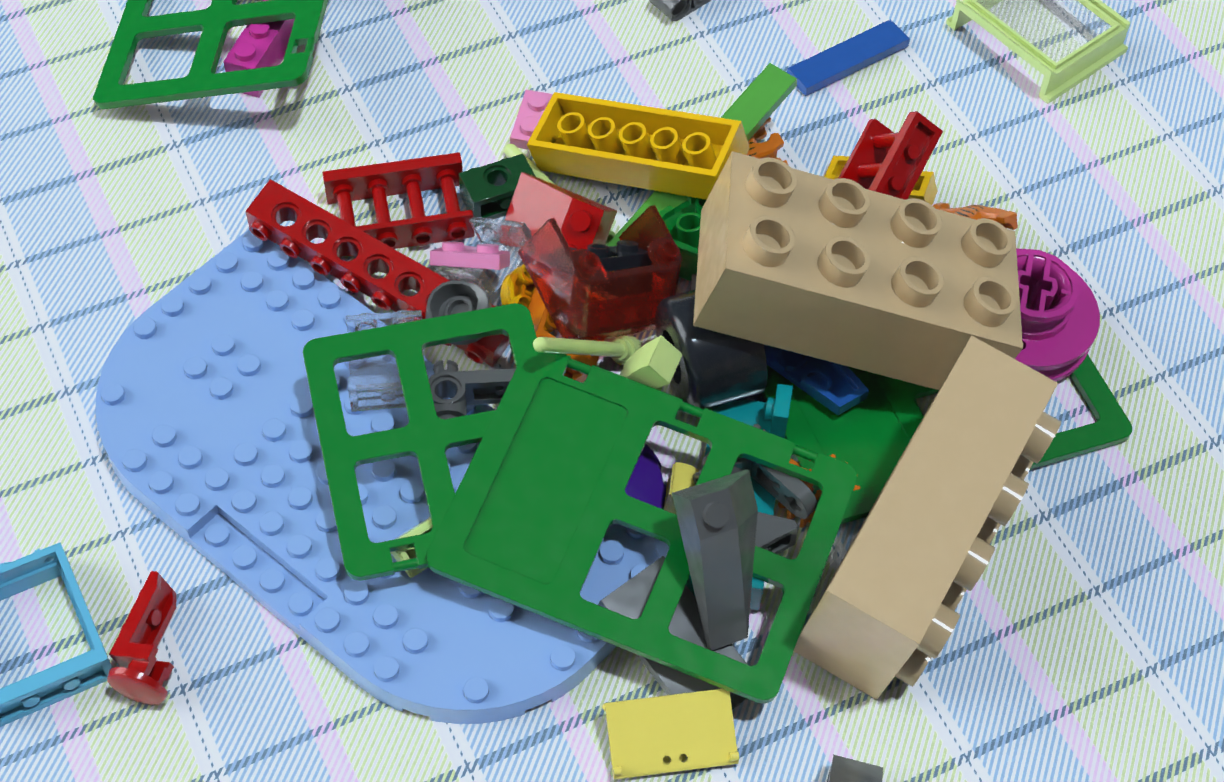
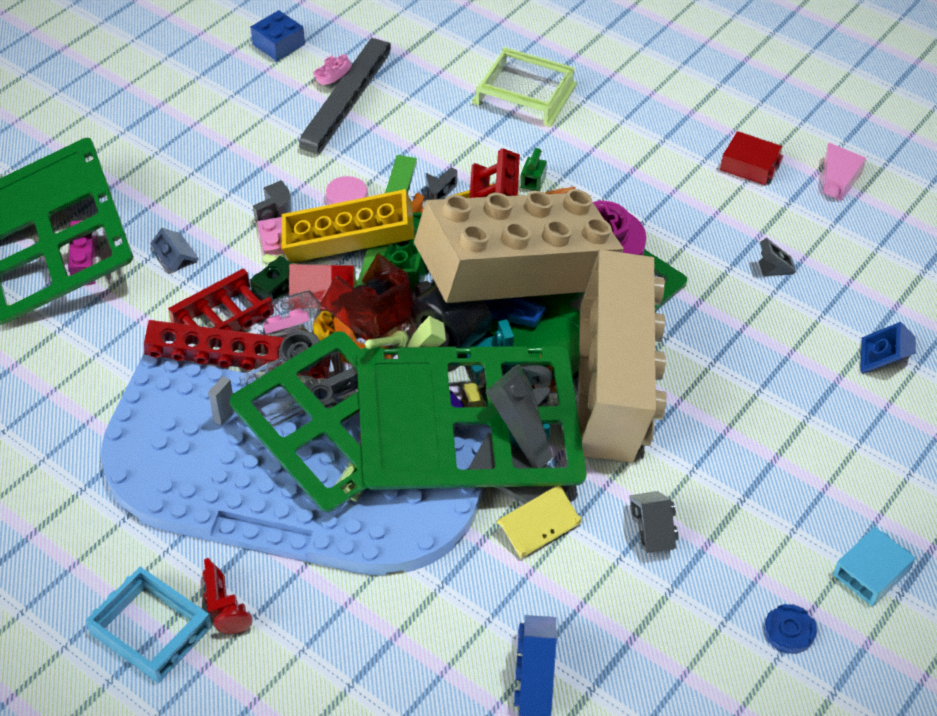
camera: 25 degrees left, 5 degrees down
(293, 335) = (219, 400): none -> light grey tile
(388, 84) = (172, 248): none -> sand blue panel
(568, 75) = (276, 202): none -> dark grey brick
(678, 90) = (345, 189): none -> bright pink tile
(822, 138) = (440, 187): none -> dark grey slope
(848, 57) = (431, 137): blue tile -> none
(976, 166) = (534, 172): none -> green brick

